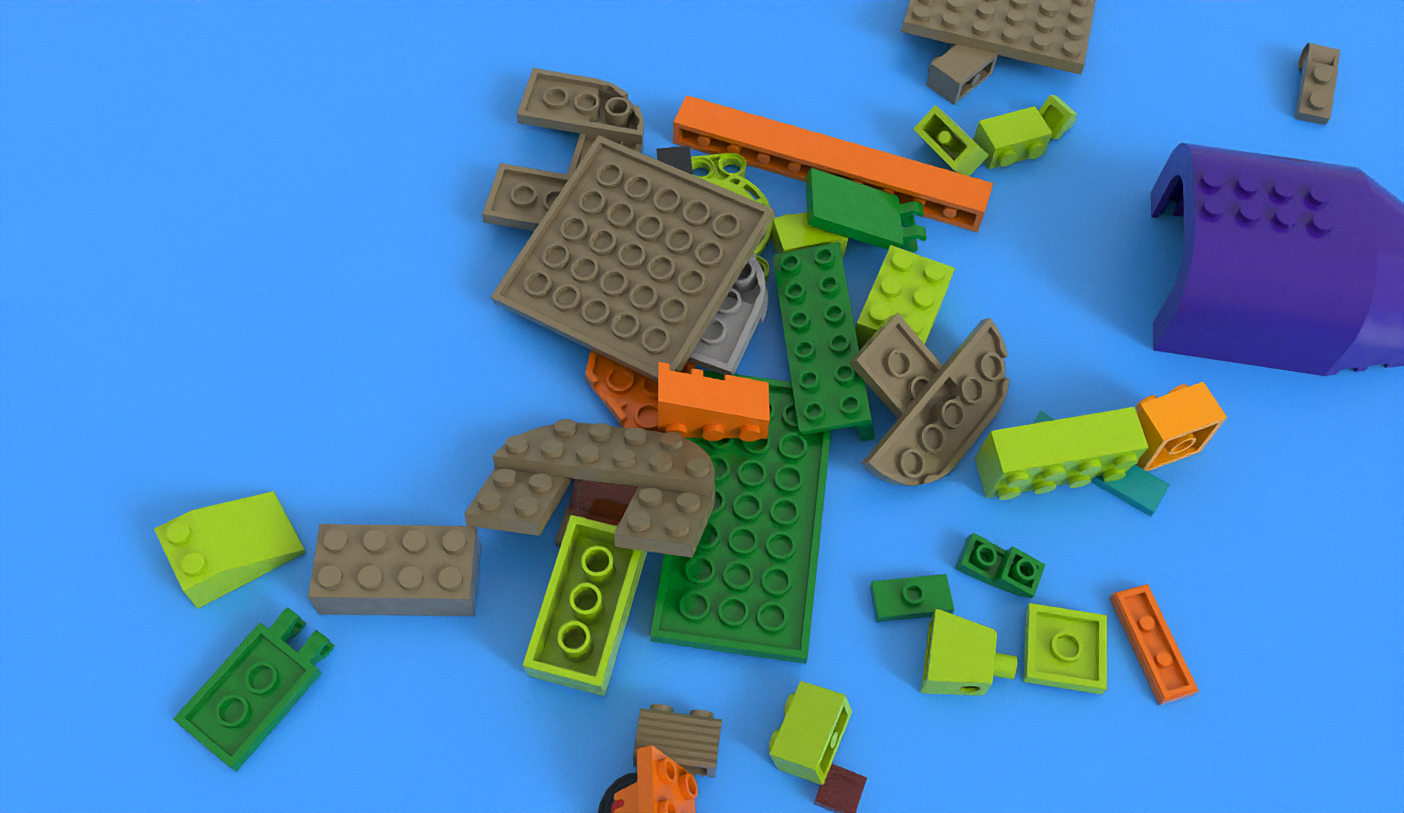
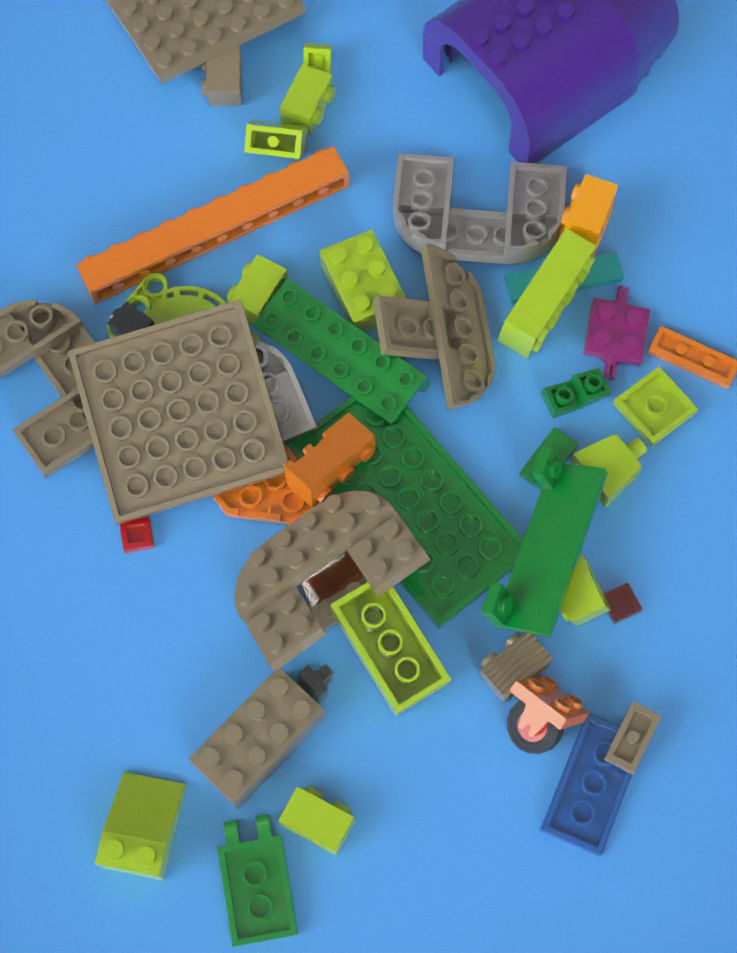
camera: 40 degrees left, 10 degrees up
(360, 689) = (317, 820): none -> lime brick
(496, 576) = (315, 682): none -> clear smoke tile
(502, 328) = (137, 535): none -> red tile
(819, 666) = (549, 547): none -> green bracket
(861, 212) = (275, 243): green tile -> none
(1018, 302) = (510, 237): none -> light grey plate
(1096, 551) = (616, 332): none -> magenta plate

